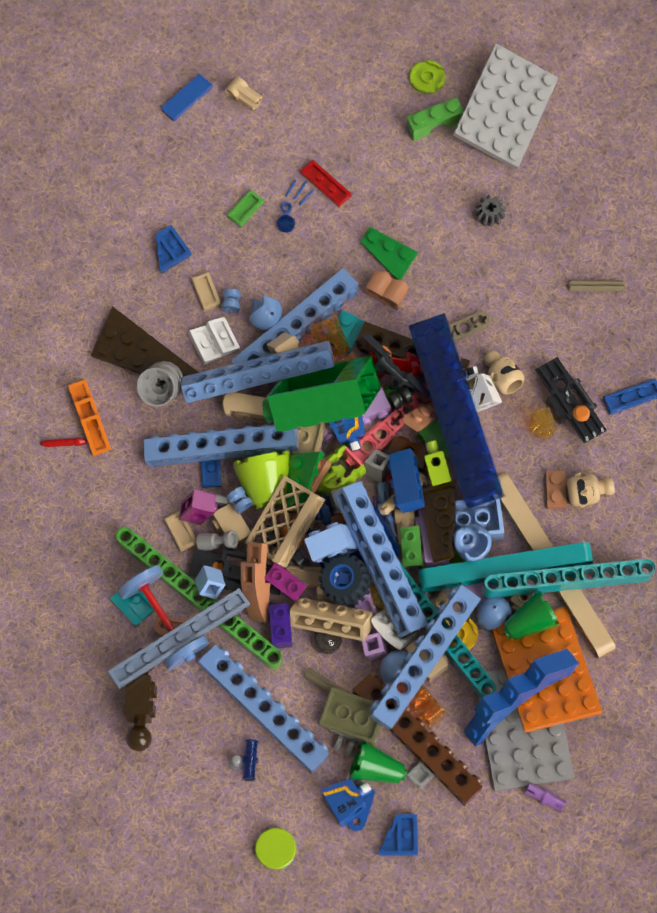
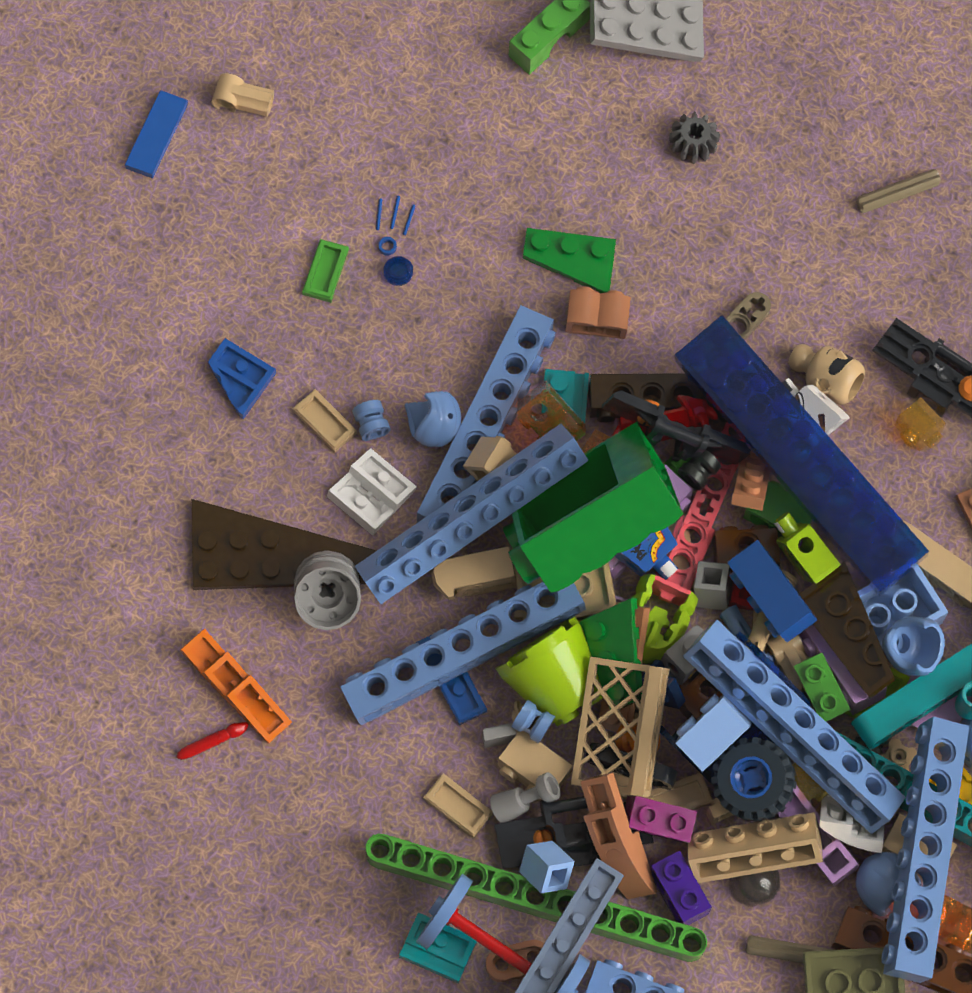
camera: 30 degrees left, 0 degrees up
(198, 507) = (473, 758): magenta brick -> none
(325, 183) = (429, 187): red tile -> none

